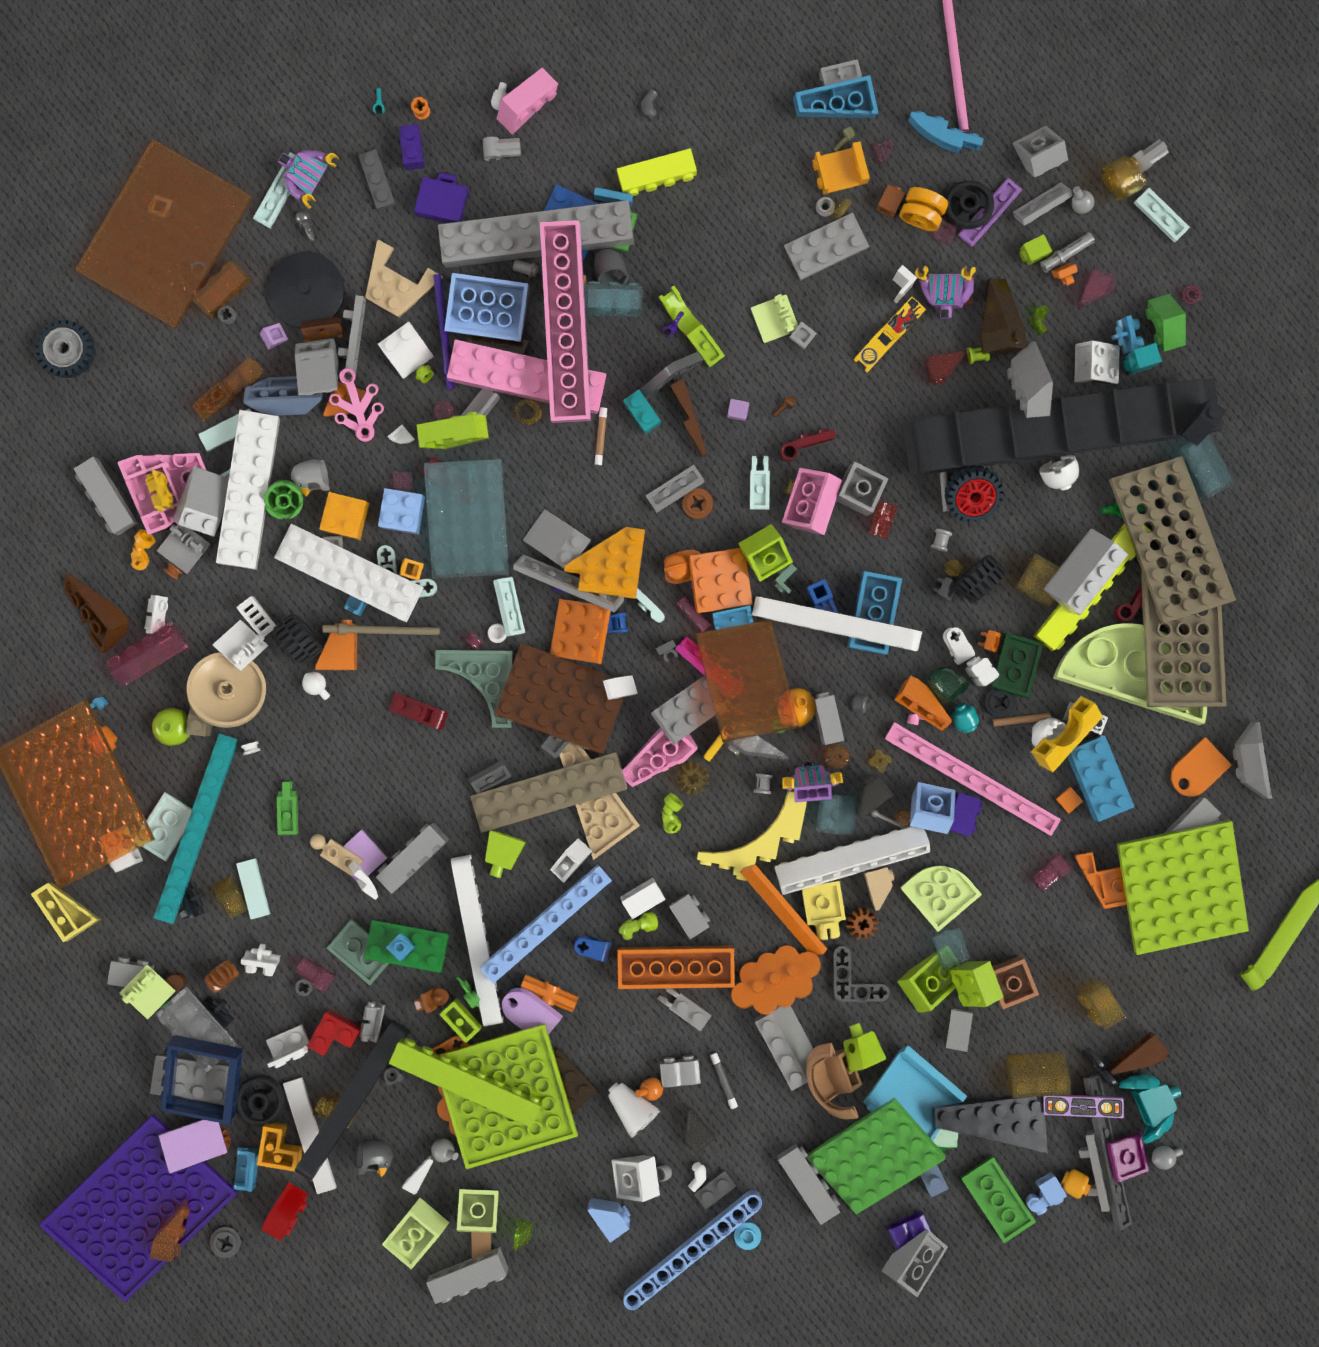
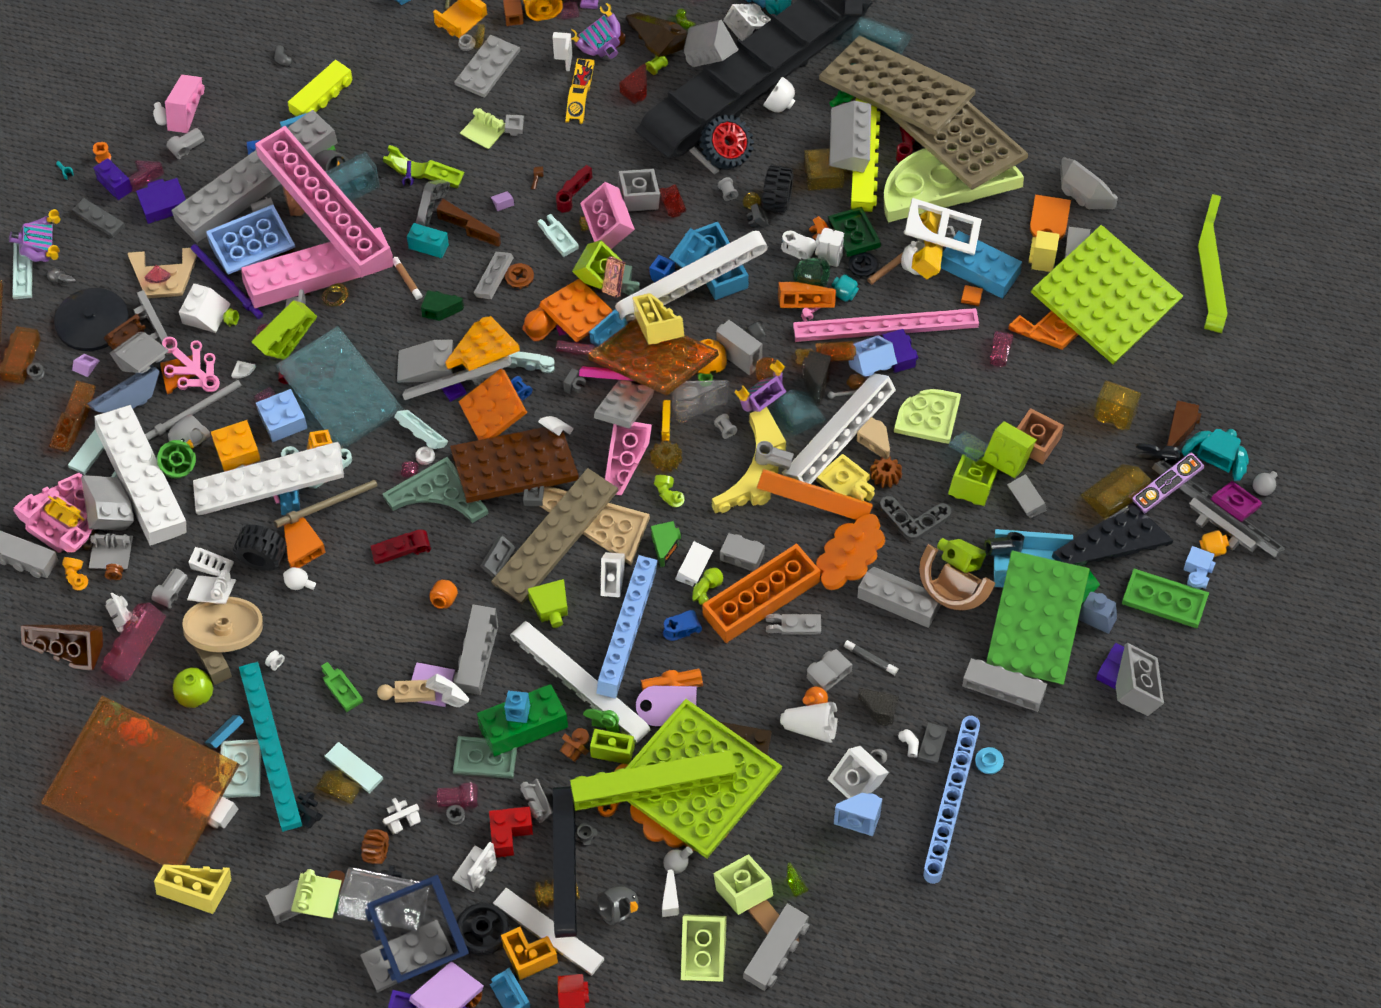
camera: 30 degrees left, 30 degrees down
(171, 786) = (224, 731): none -> dark azure tile
(206, 620) = (168, 591): none -> light grey piece
(295, 450) = (160, 429): none -> light grey bar
(386, 286) = (157, 275): none -> clear pink tile
(422, 782) = (443, 594): none -> orange head
(448, 160) = (147, 173): none -> clear pink slope
(607, 490) = (440, 305): none -> dark green slope
(634, 860) = (665, 540): none -> bright green slope
(770, 572) = (613, 277): none -> tile
(771, 651) = (655, 320): none -> light yellow wedge
(776, 854) = (774, 455): none -> light grey piece
(854, 596) = (690, 249): none -> dark azure hinge
(902, 782) = (838, 350): none -> clear orange slope
(902, 1068) = (1004, 545): none -> black piece
(1063, 720) = (915, 227): none -> white window
(1165, 808) = (1043, 251): none -> light yellow wedge

